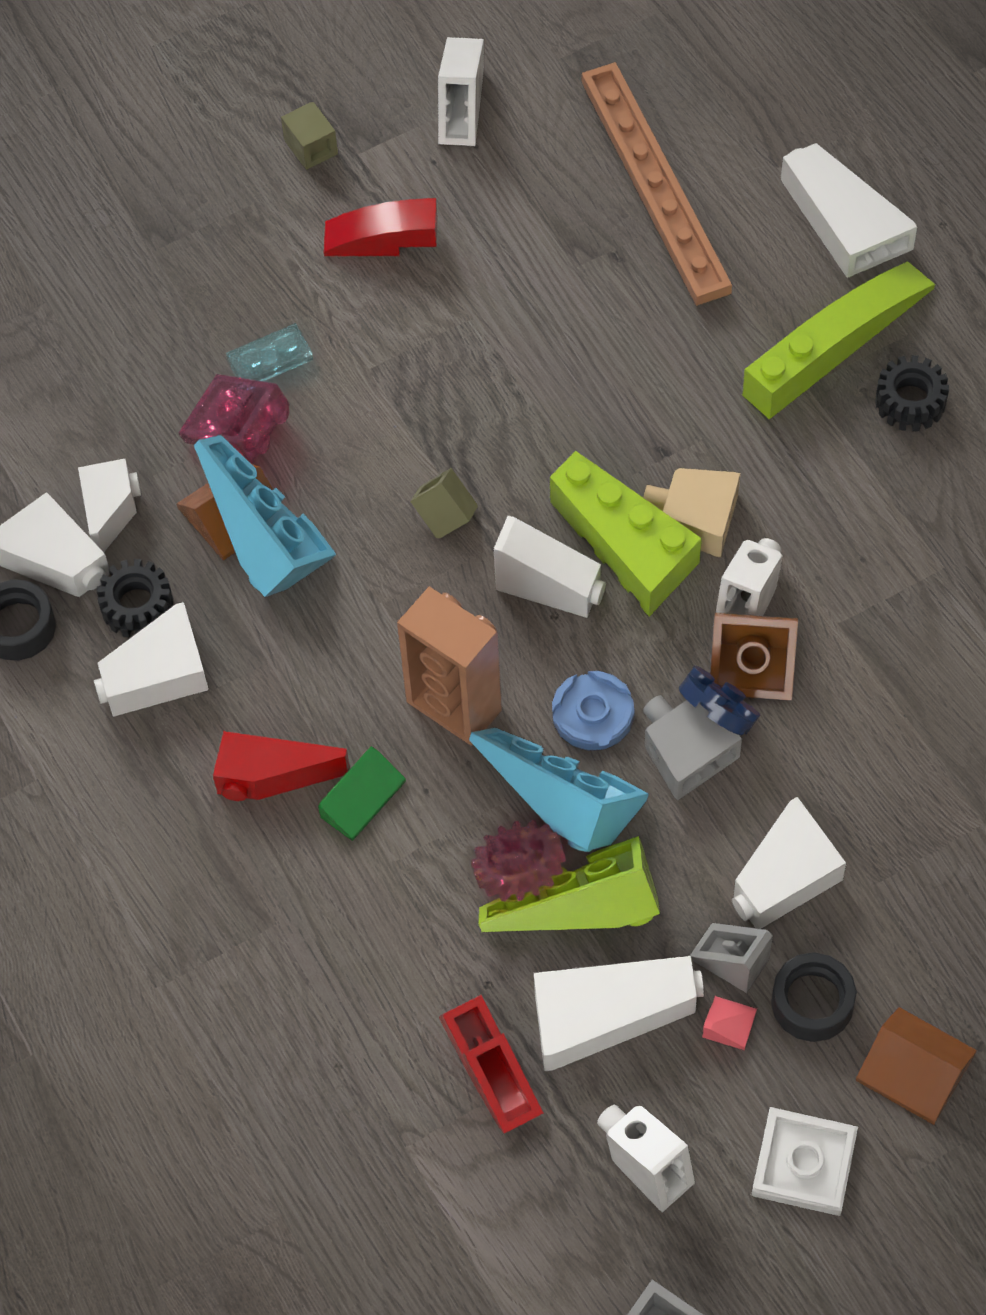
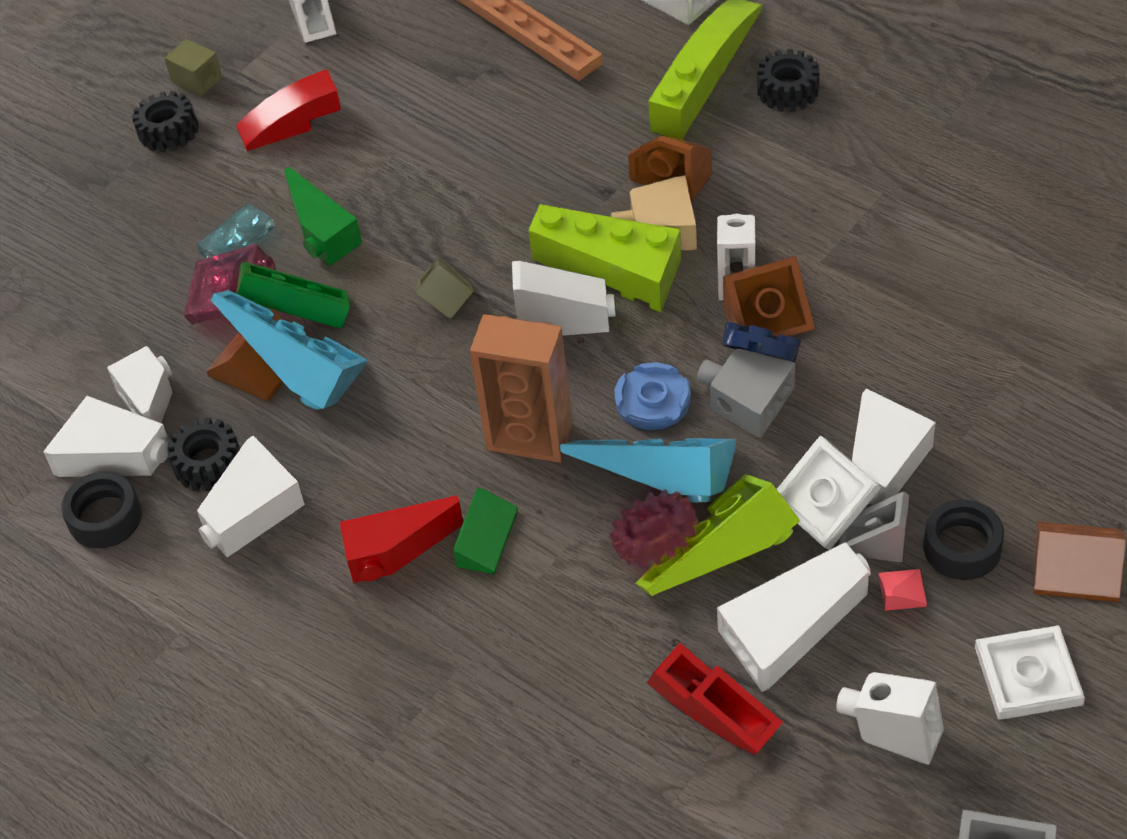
camera: 20 degrees left, 10 degrees down
(255, 206) = (169, 133): none -> black tyre
(289, 455) = (293, 295): none -> green slope
(356, 379) = (325, 225): none -> green slope
(701, 892) = (827, 492): none -> white tile
(739, 450) = (668, 159): none -> dark orange slope

